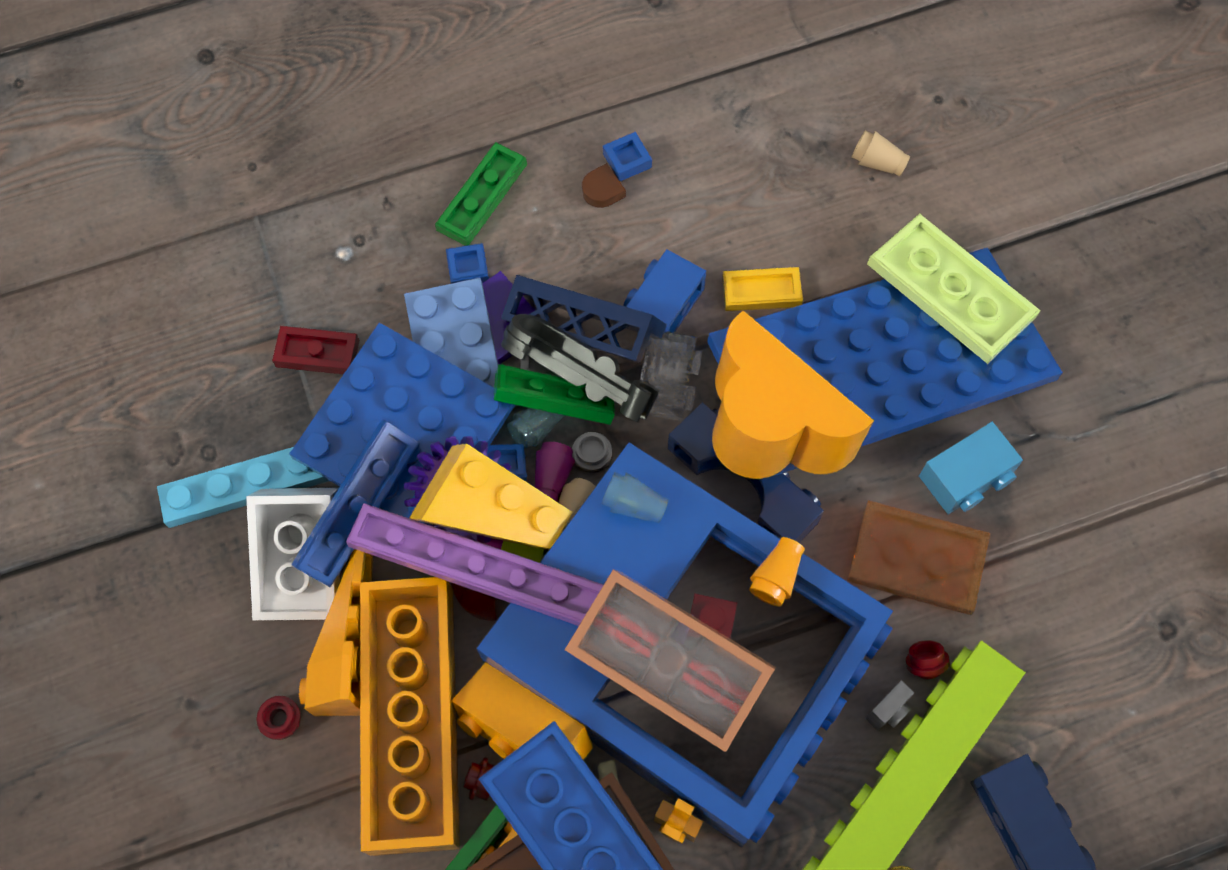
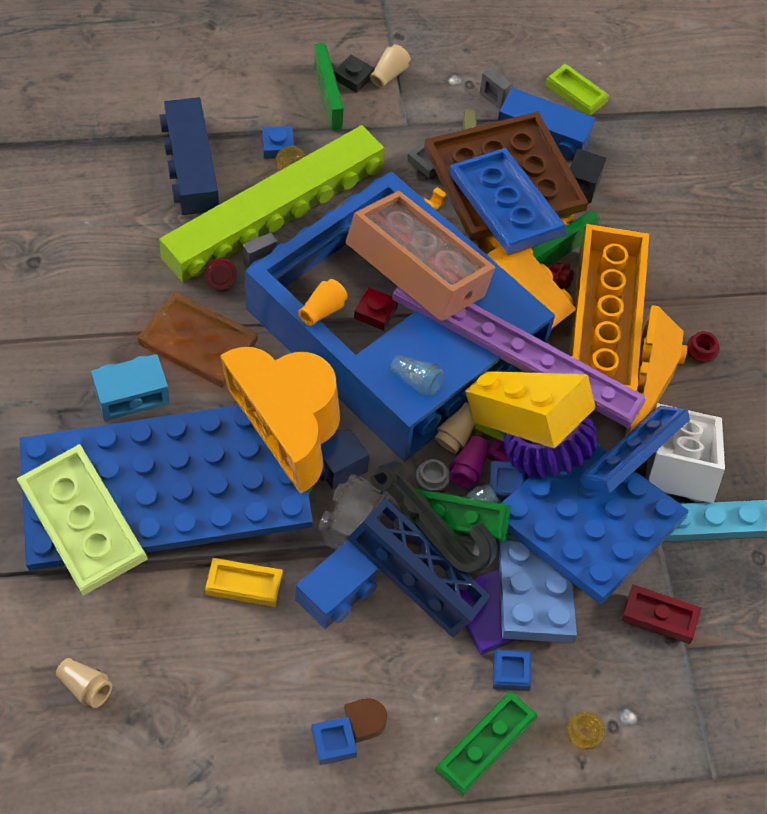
camera: 175 degrees left, 10 degrees down
(381, 214) = (590, 721): none -> clear yellow plate

